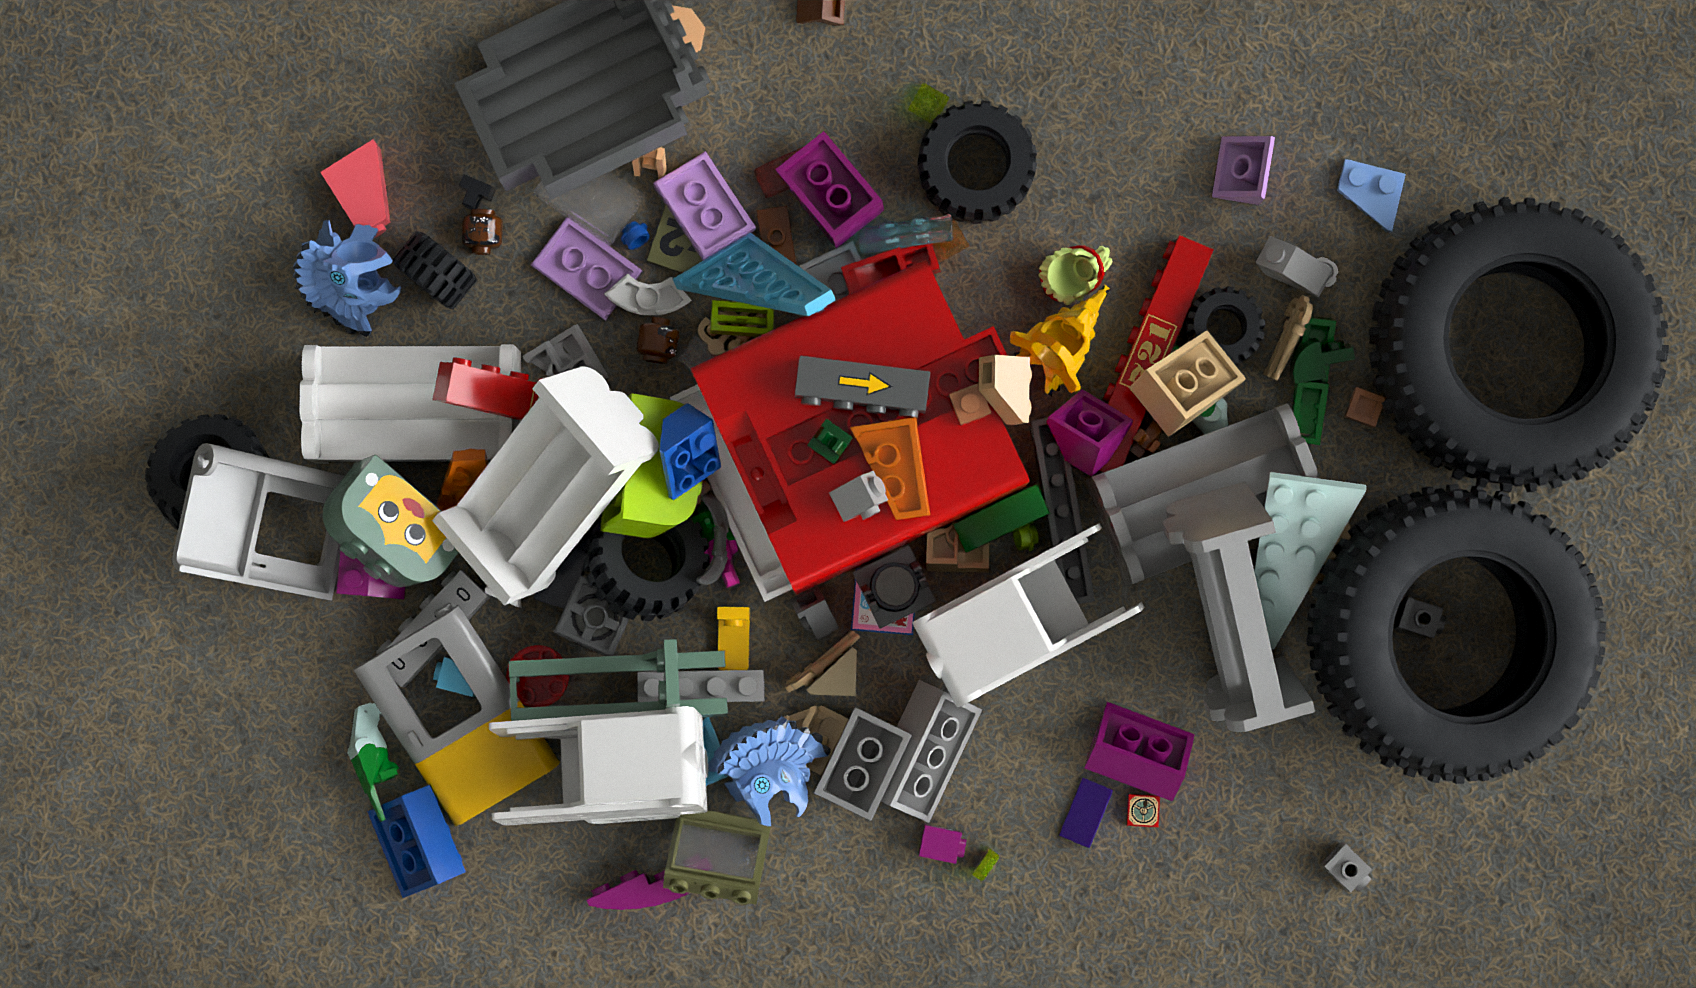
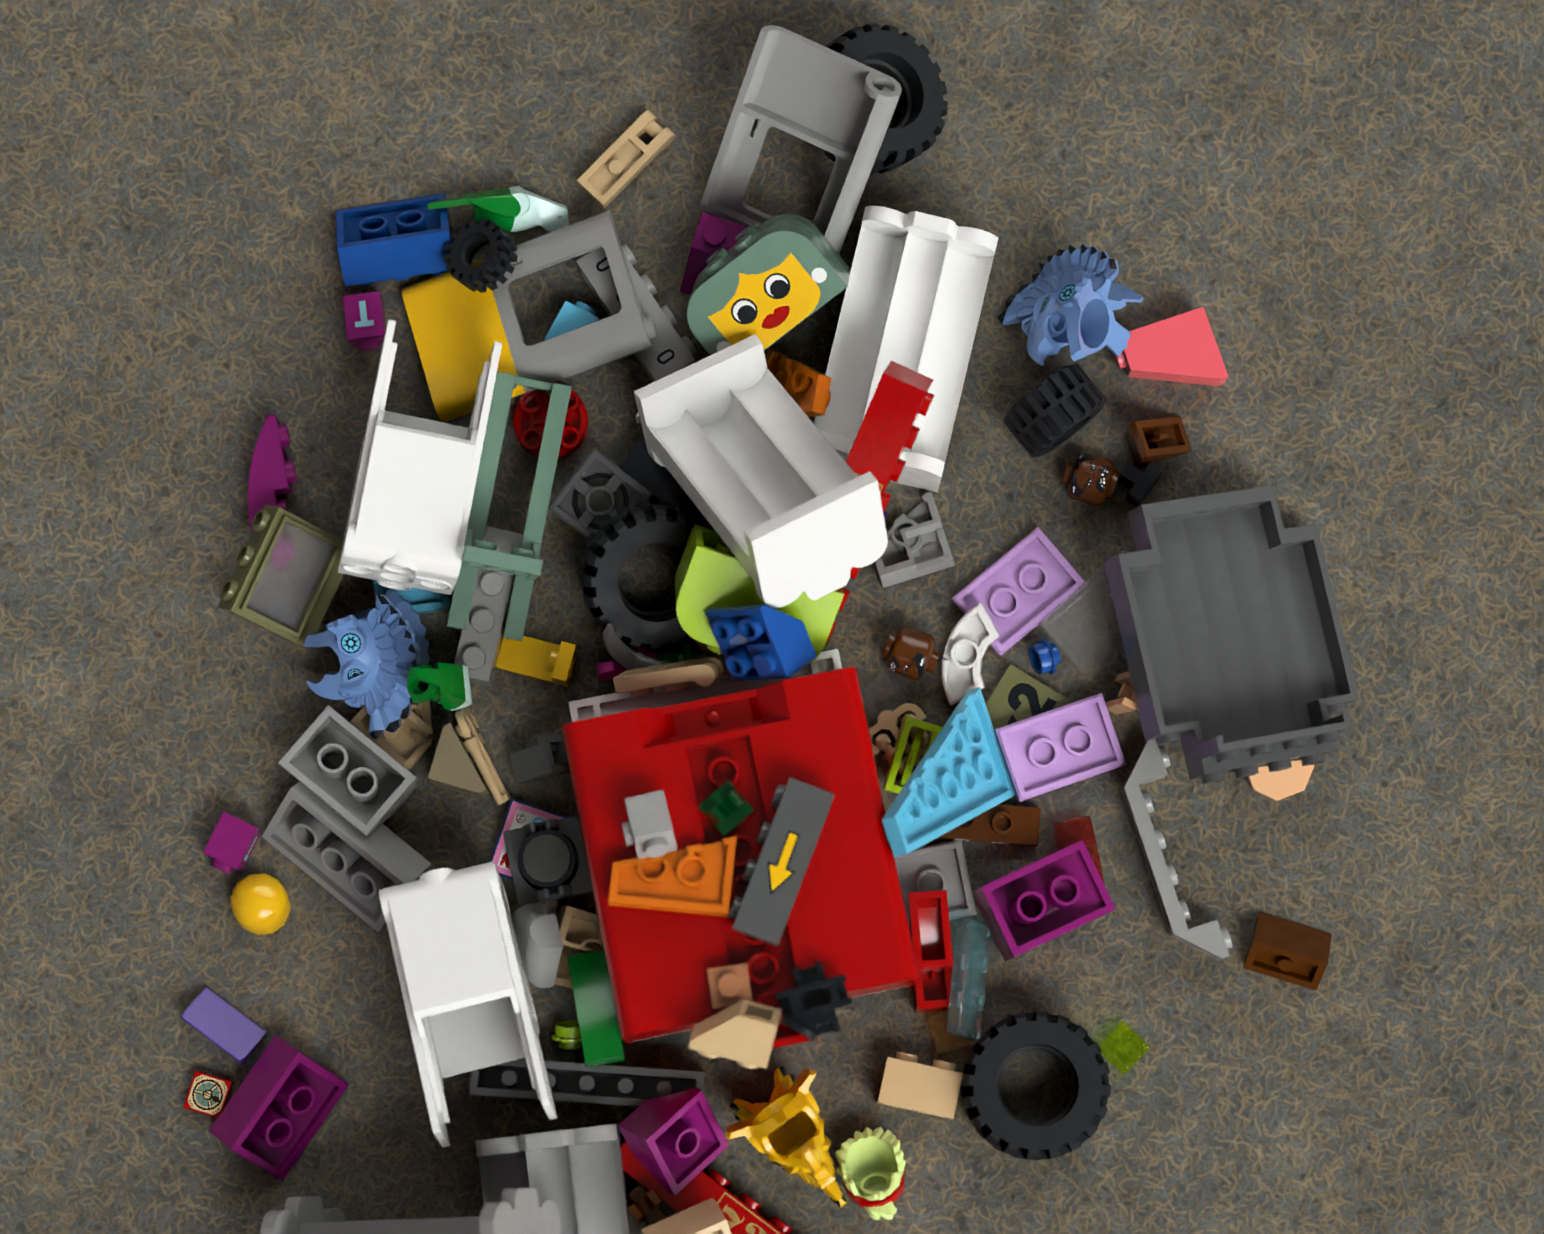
camera: 105 degrees right, 5 degrees down
(305, 670) = (624, 159): none -> tan plate
(412, 780) = (494, 265): none -> black tyre
(438, 186) = (1157, 440): none -> reddish brown slope
(490, 848) = (365, 320): none -> magenta brick
(726, 520) = (671, 675): none -> tan plate
(776, 702) = (443, 684): none -> green animal
(826, 56) = (1206, 938): none -> light grey slope
(960, 338) = (813, 1007): none -> black piece
(962, 576) = (538, 943): none -> light grey brick
(983, 809) = (260, 904): none -> yellow hair
(985, 864) = (194, 889): clear neon green tile -> none
(999, 252) = (920, 1086): none -> tan brick

